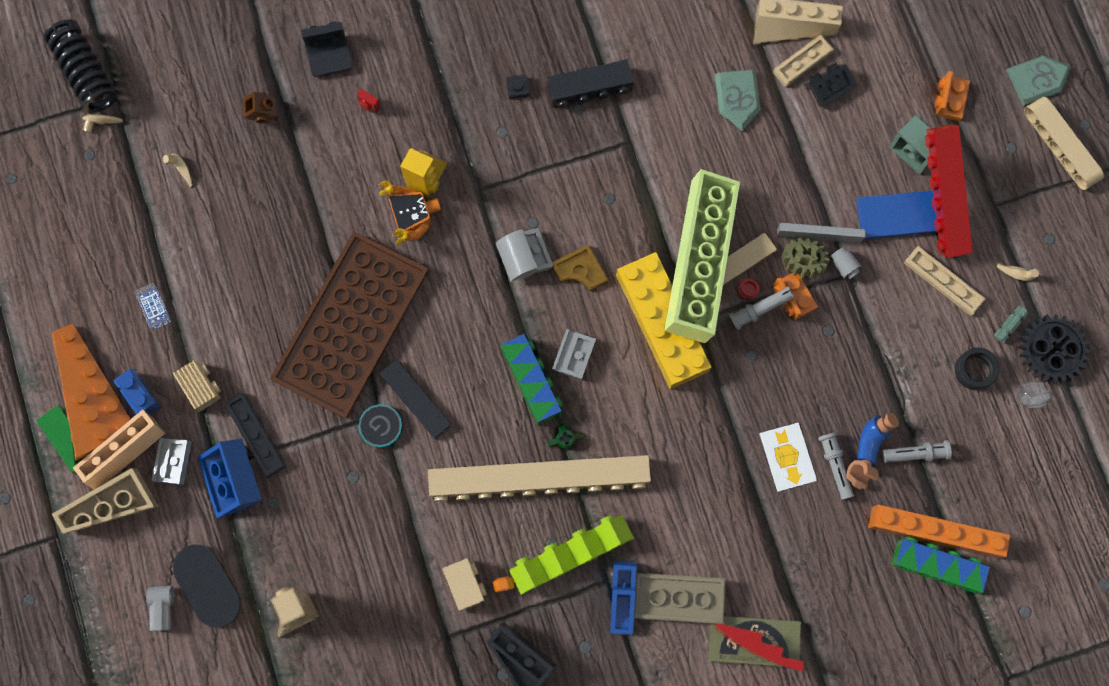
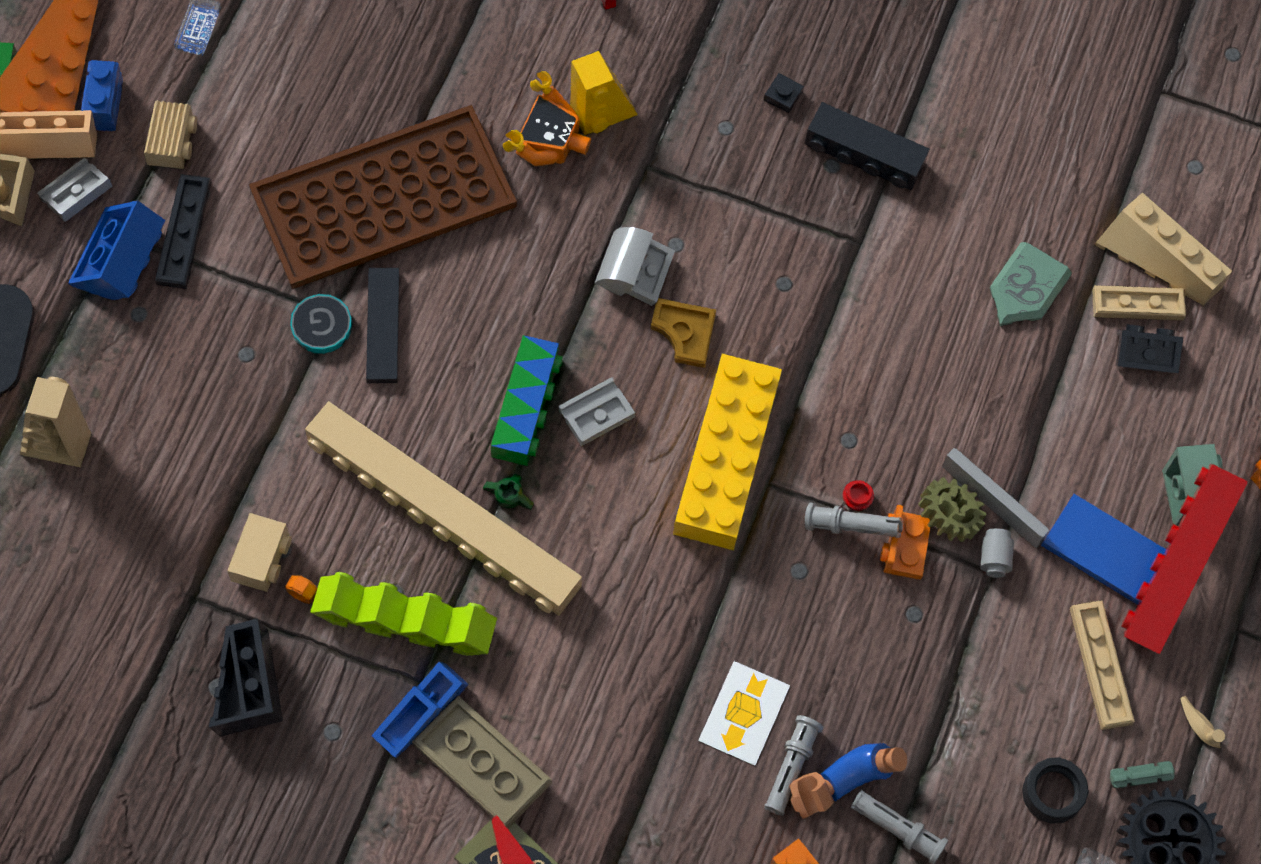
camera: 35 degrees right, 10 degrees down
(702, 256) = (828, 410): yellowish green brick -> none
(748, 257) = (866, 458): tan tile -> none

